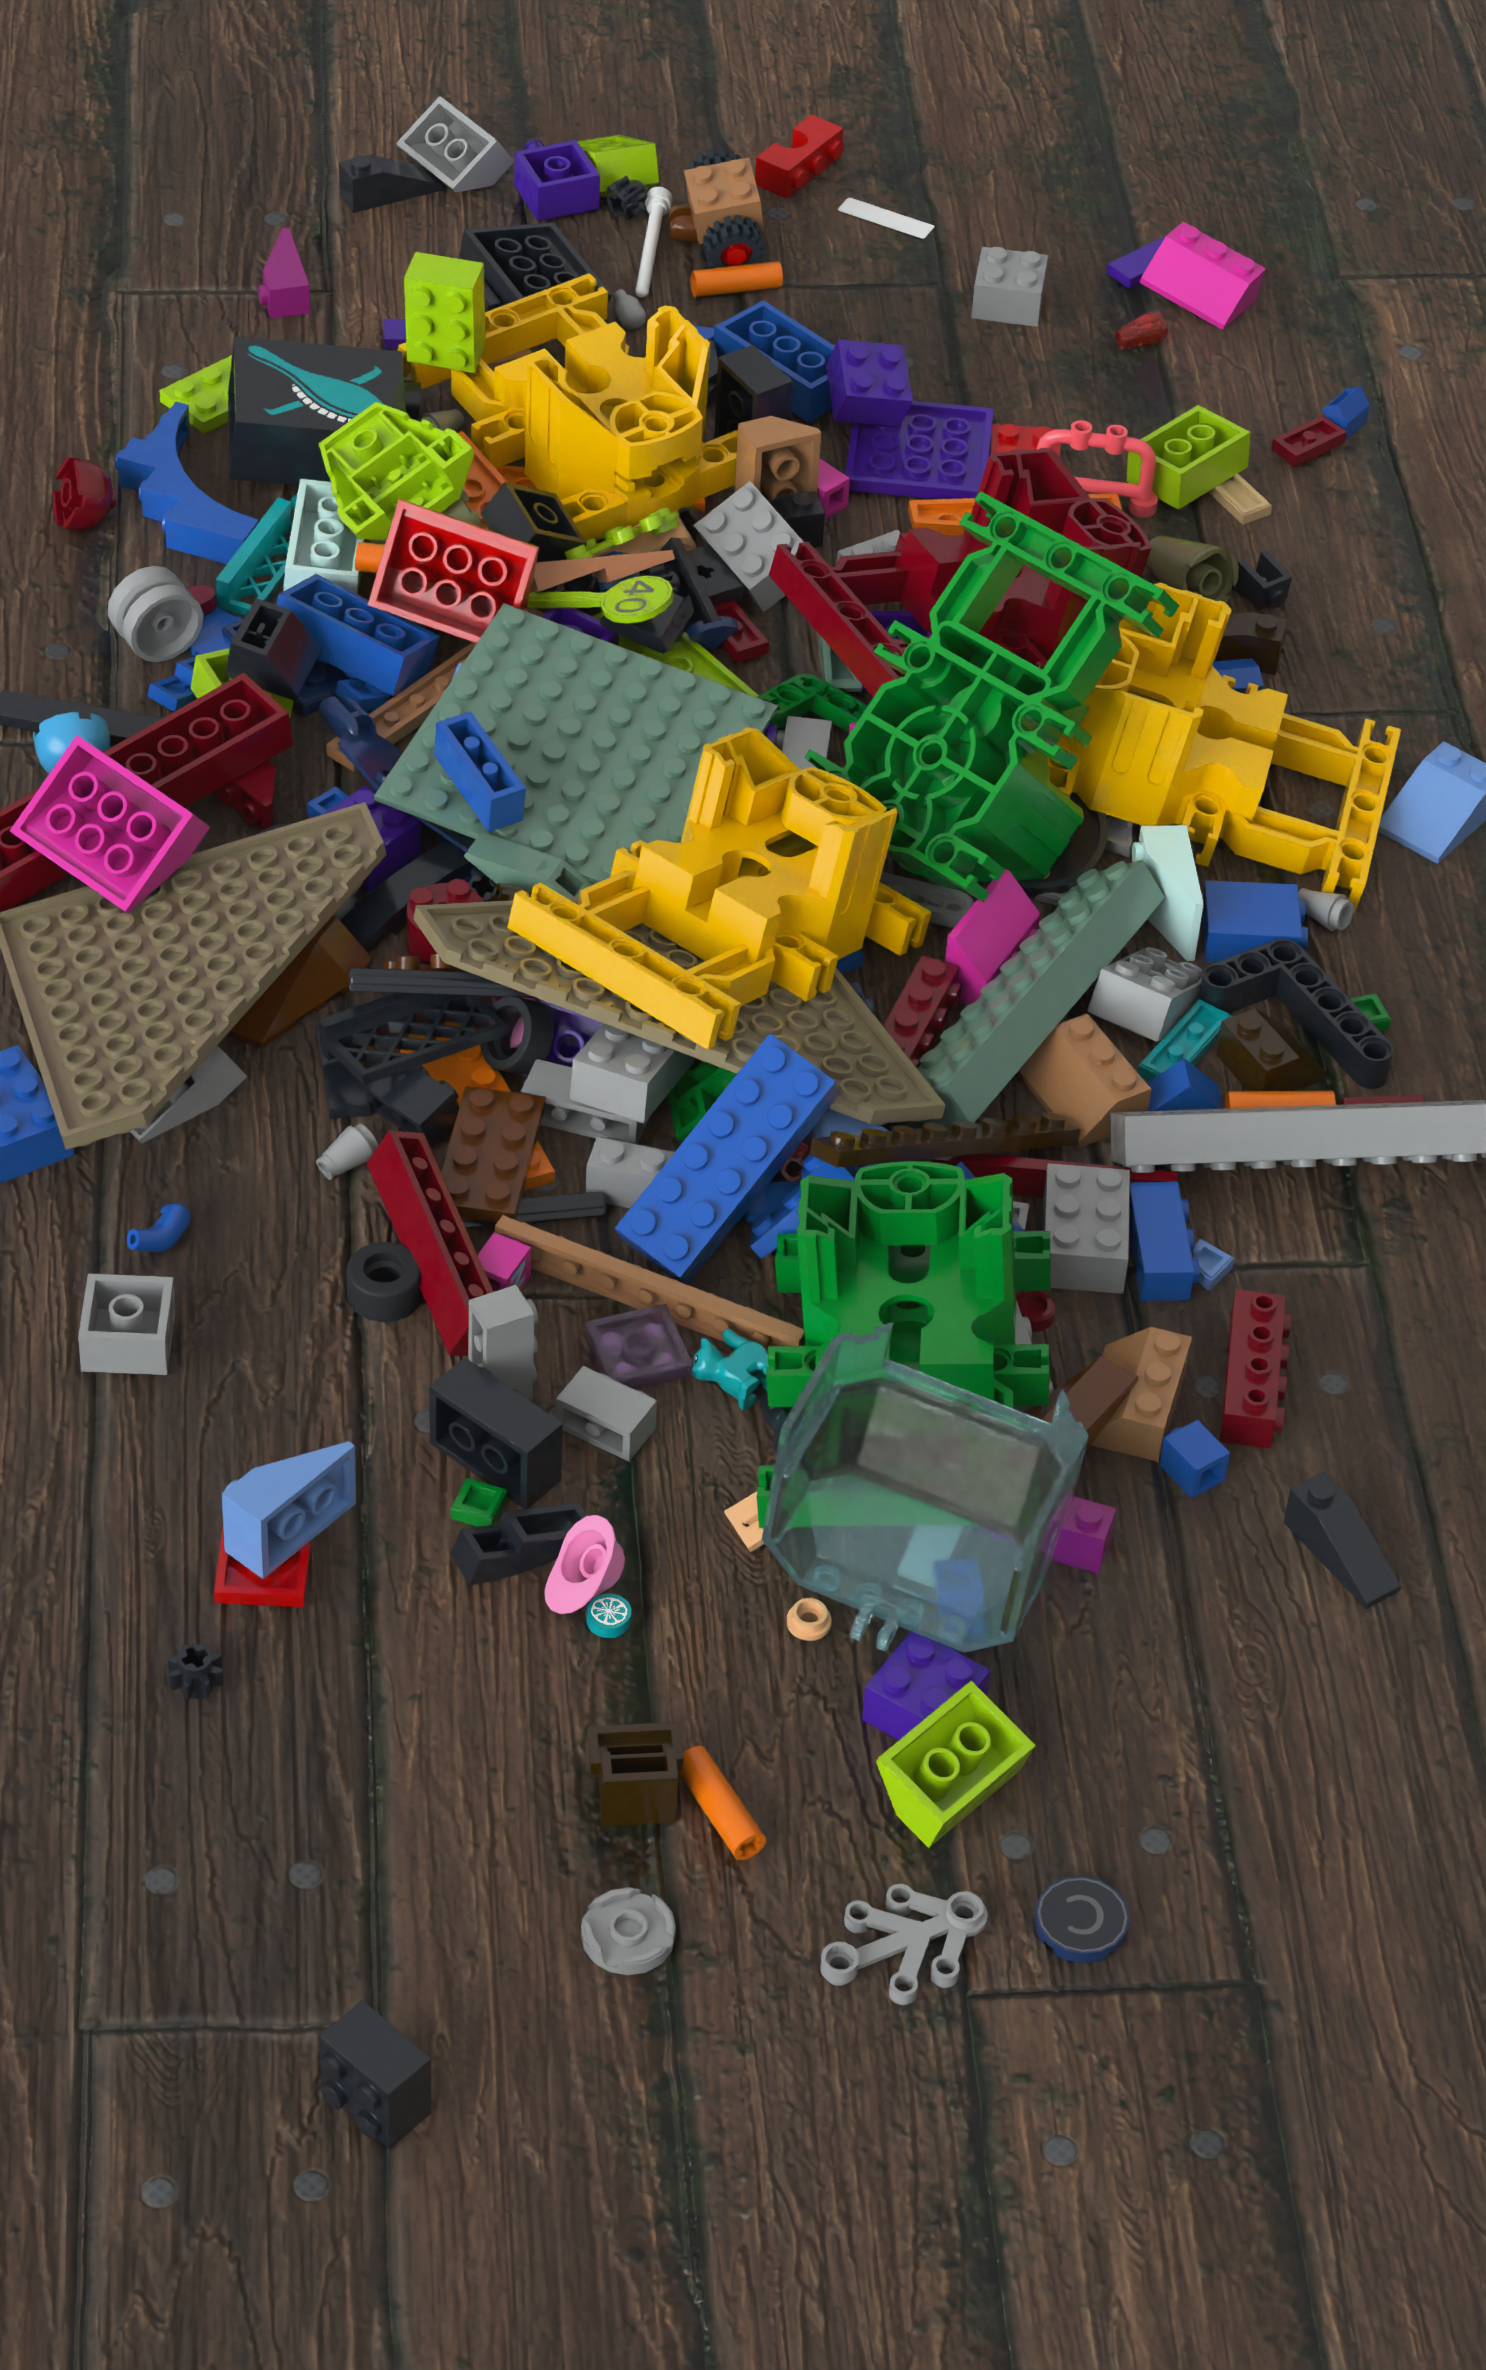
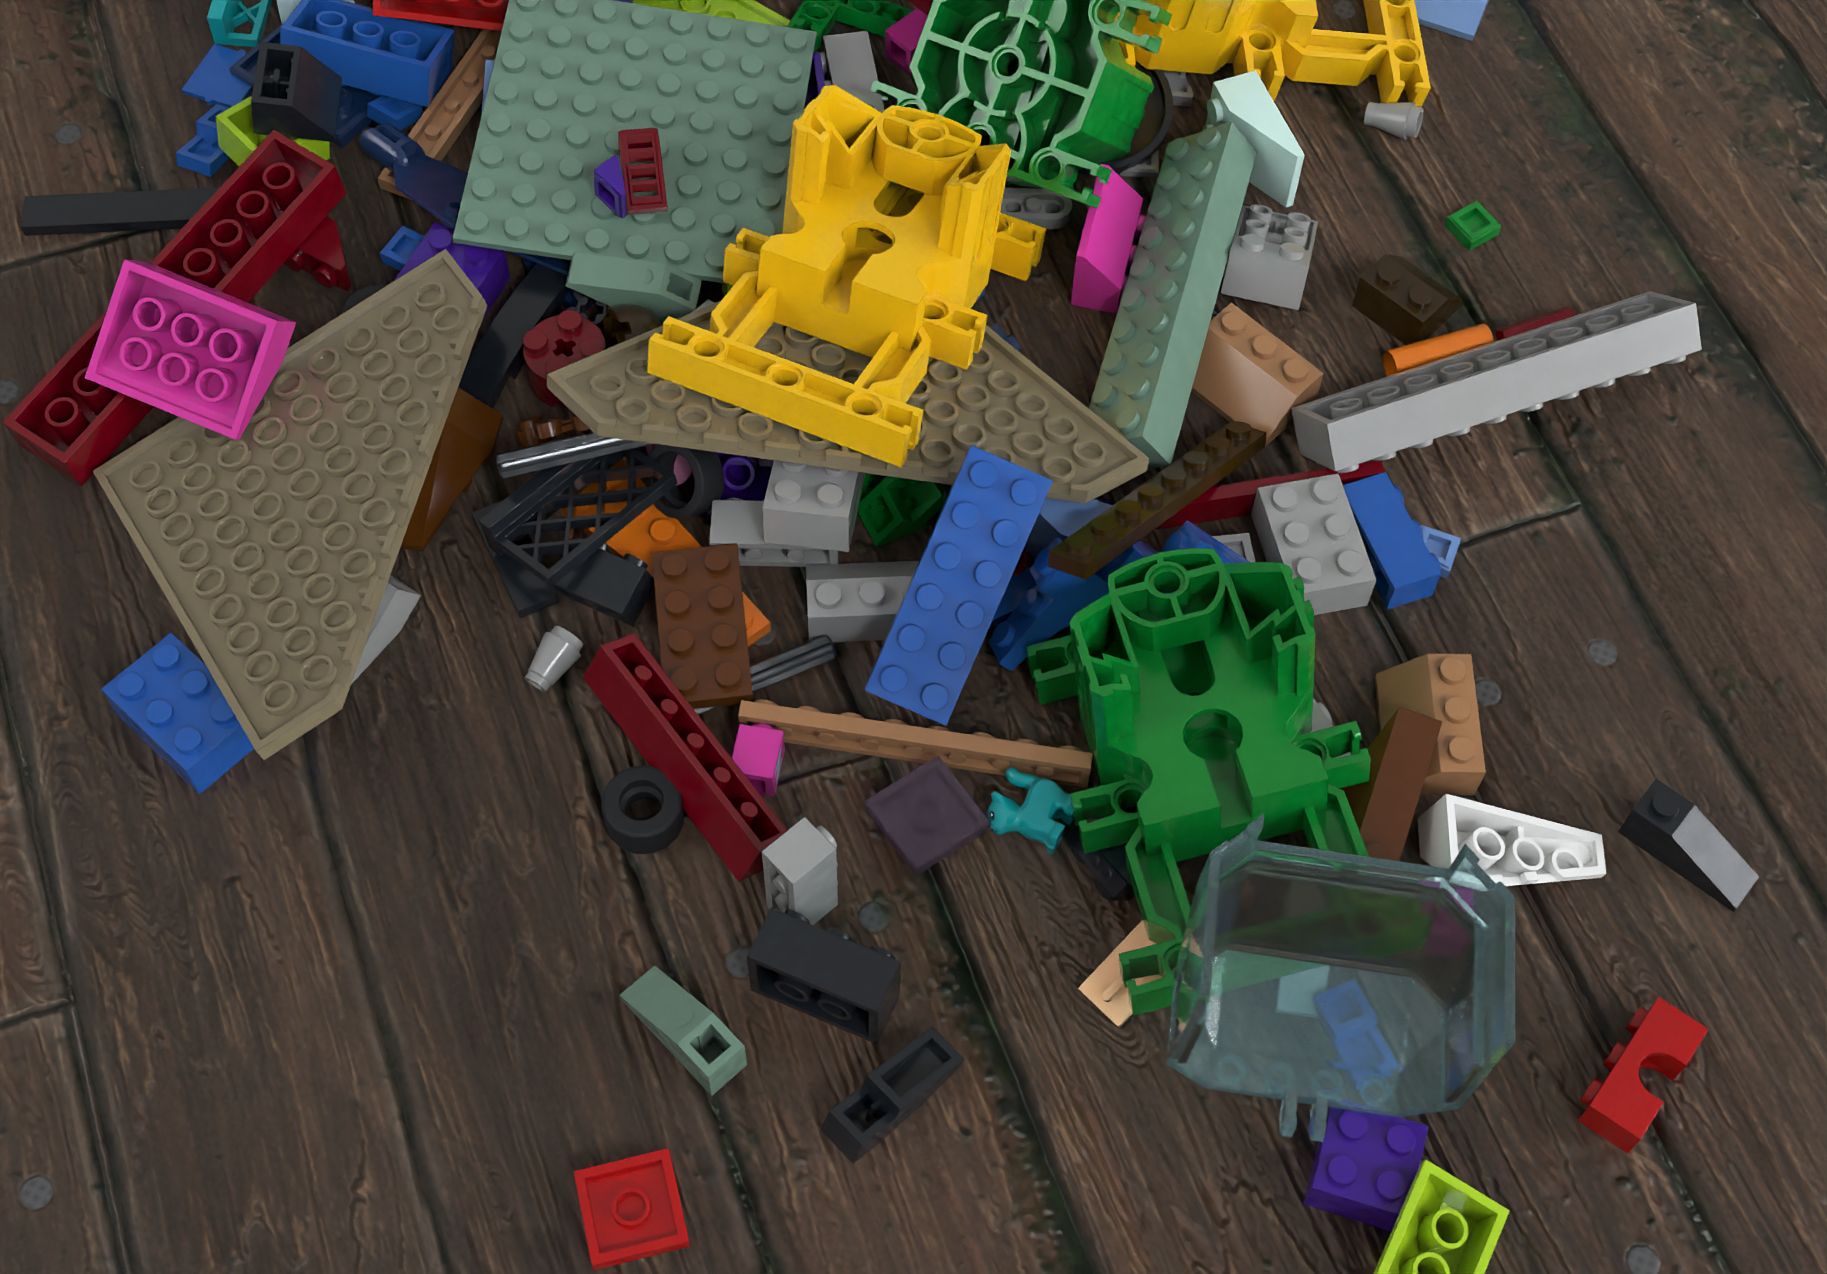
camera: 15 degrees left, 15 degrees up
(60, 731) = (110, 242): dark azure cylinder -> none
(127, 1324) = (392, 948): light grey brick -> none
(155, 614) = (157, 73): light grey wheel -> none
(163, 1233) = (393, 814): blue arm -> none
(205, 596) = (195, 42): dark red tile -> none
(286, 1505) = (637, 1152): medium blue slope -> none
(377, 1458) = (686, 1029): none -> sand green slope
(478, 1503) = (828, 1055): green tile -> none
(479, 771) = (555, 190): blue brick -> none
(532, 776) = (610, 186): none -> dark purple slope
(568, 755) = (642, 146): none -> dark red slope
(585, 1566) = (967, 1115): bright pink piece -> none
(606, 1413) = (923, 906): light grey brick -> none
(608, 1615) = (1008, 1157): teal tile -> none
(809, 1619) = (1208, 1116): light nougat plate -> none
(924, 1007) = (1068, 336): dark red brick -> none
(1163, 1493) = (1509, 843): none -> white wedge
(1183, 1089) = (1346, 363): blue slope -> none
(1187, 1039) = (1321, 304): teal tile -> none
(1194, 1458) = (1514, 784): blue brick -> none
(1238, 1675) = (1620, 1104): none -> red arch
(1248, 916) = (1342, 153): blue brick -> none
(1253, 1369) = (1530, 665): dark red brick -> none
(1311, 996) = (1427, 225): black beam -> none

